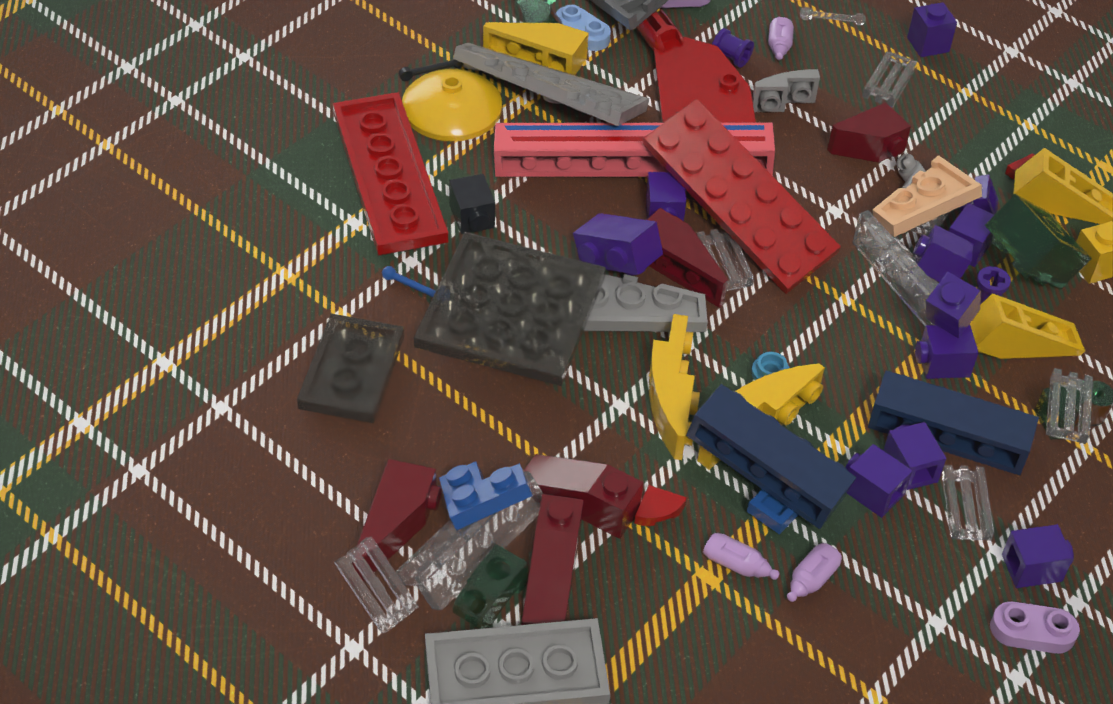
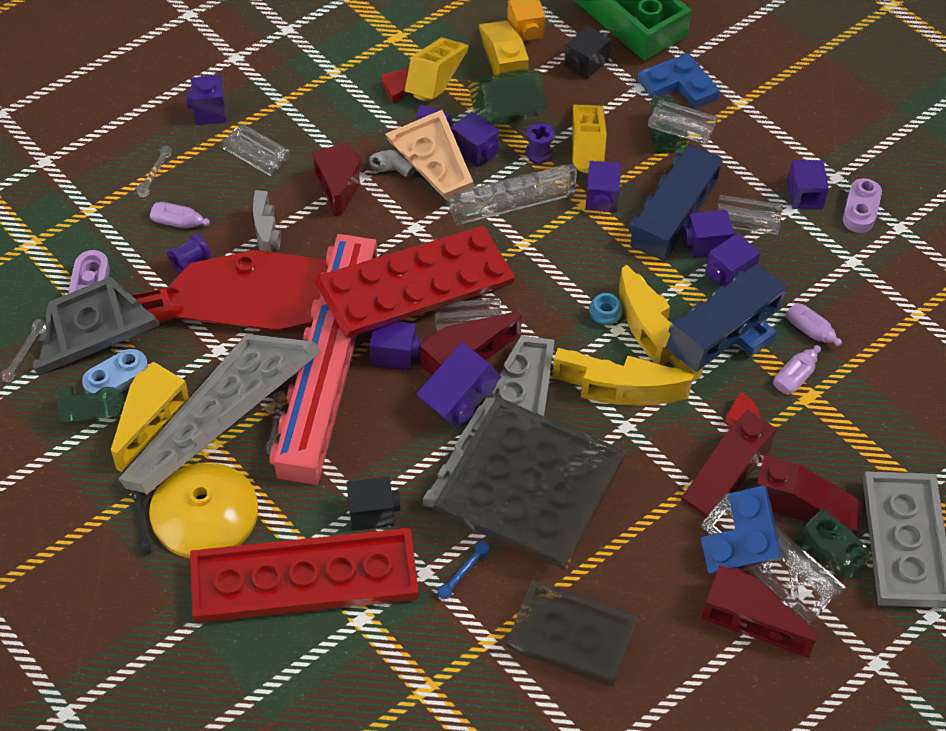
camera: 80 degrees left, 5 degrees up
(362, 592) = (837, 635): clear tile -> none
(943, 253) = (504, 159): dark purple brick -> none
(953, 304) = (589, 158): dark purple brick -> none

